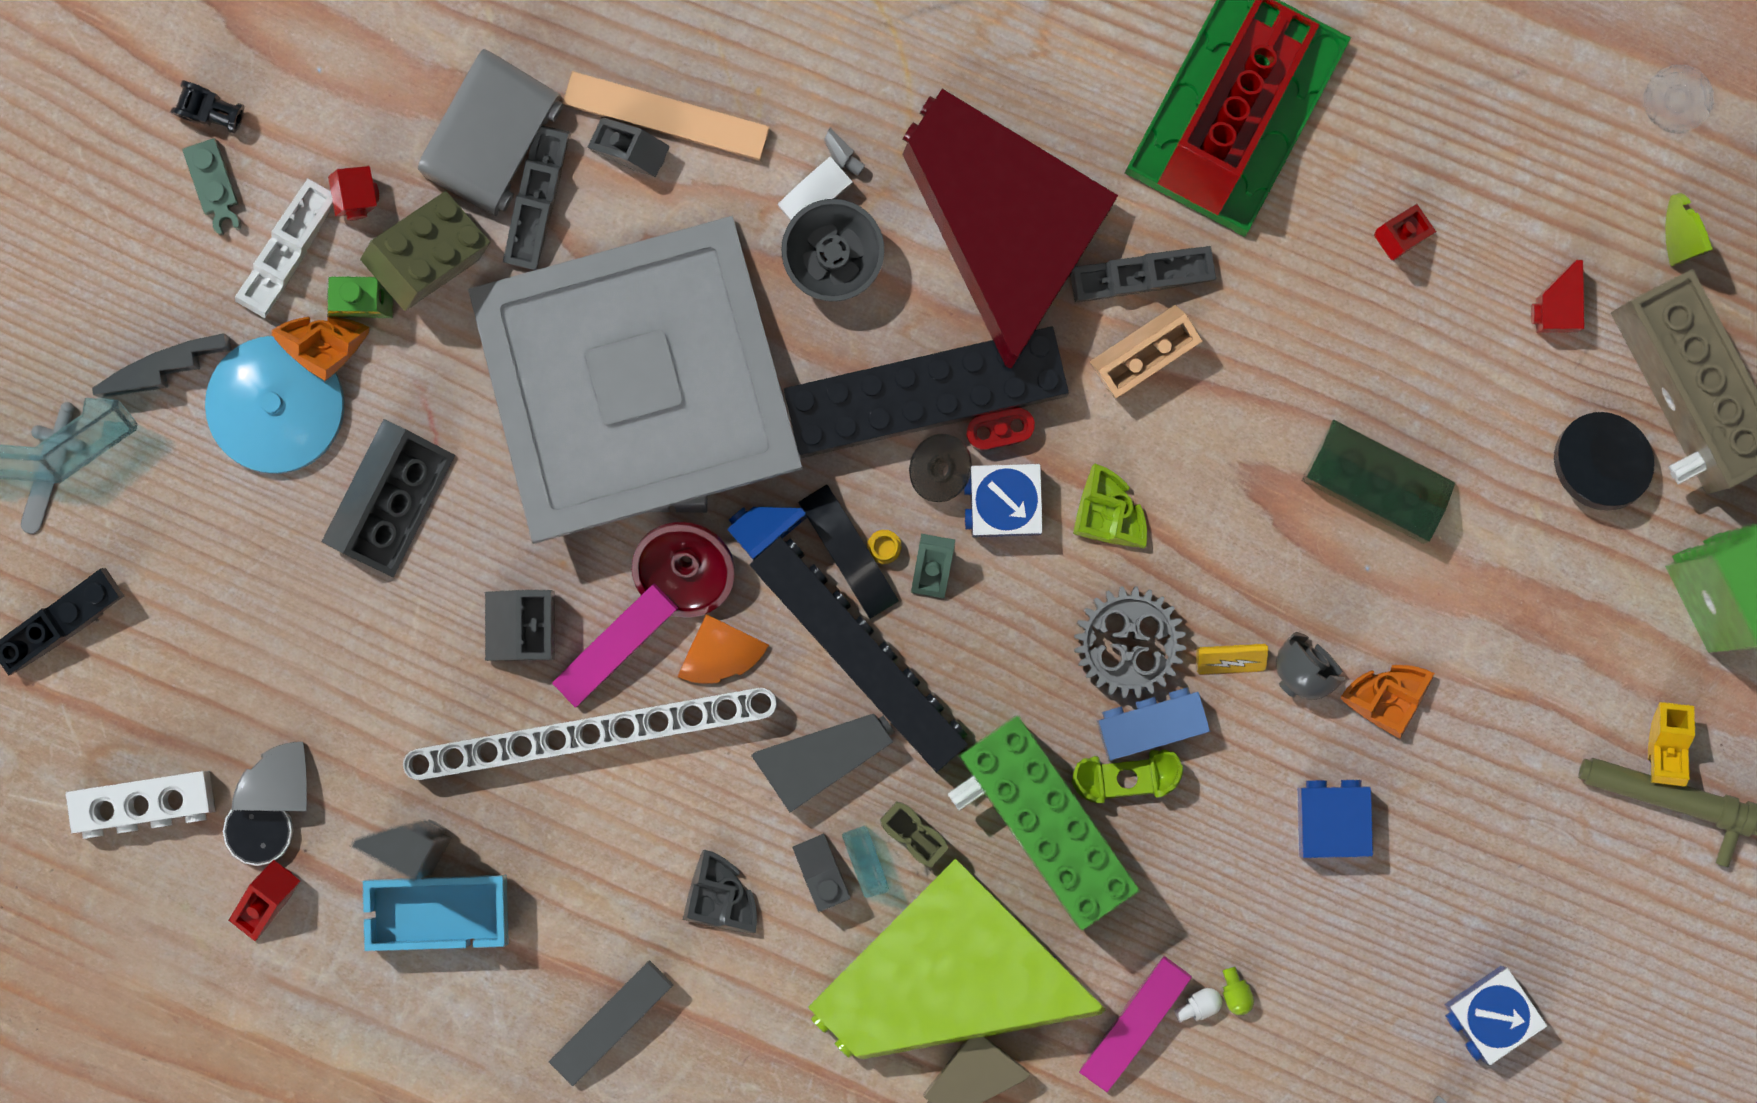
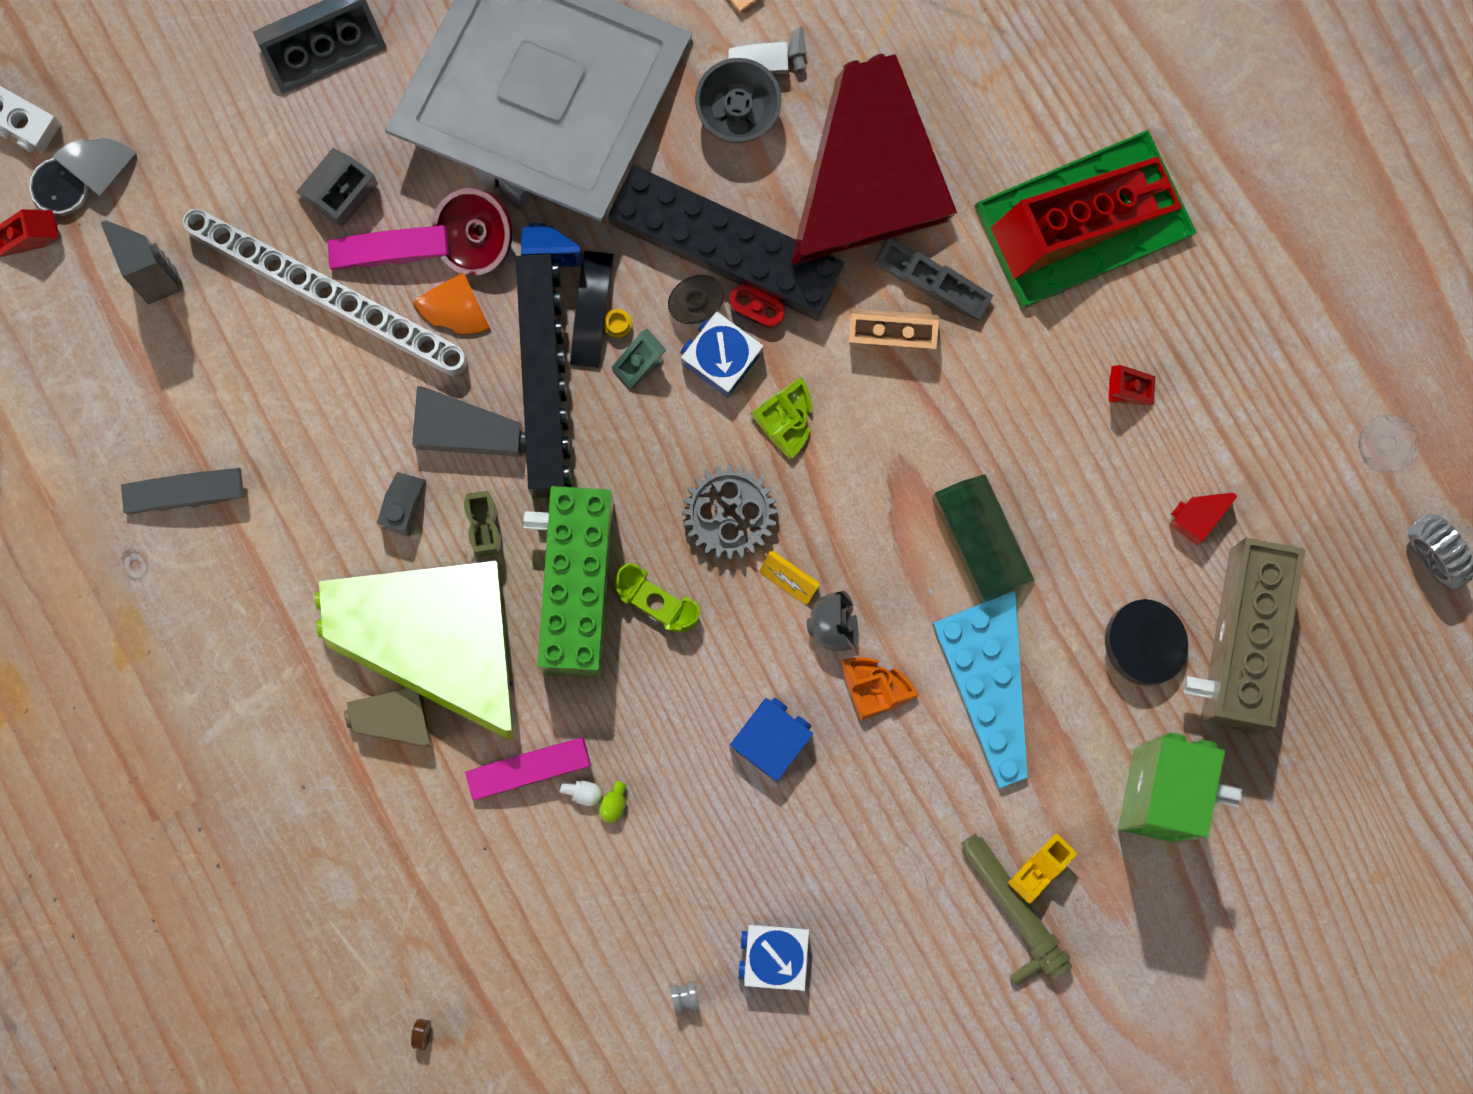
camera: 35 degrees right, 5 degrees down
(436, 912) = (128, 327): medium azure piece -> none
(718, 896) = (322, 466): dark grey brick -> none
(865, 861) = (438, 519): clear light blue slope -> none
(1152, 724) = (700, 578): medium blue brick -> none
(1476, 599) = (985, 663): none -> medium azure wing
(1684, 231) = (1322, 532): lime brick -> none

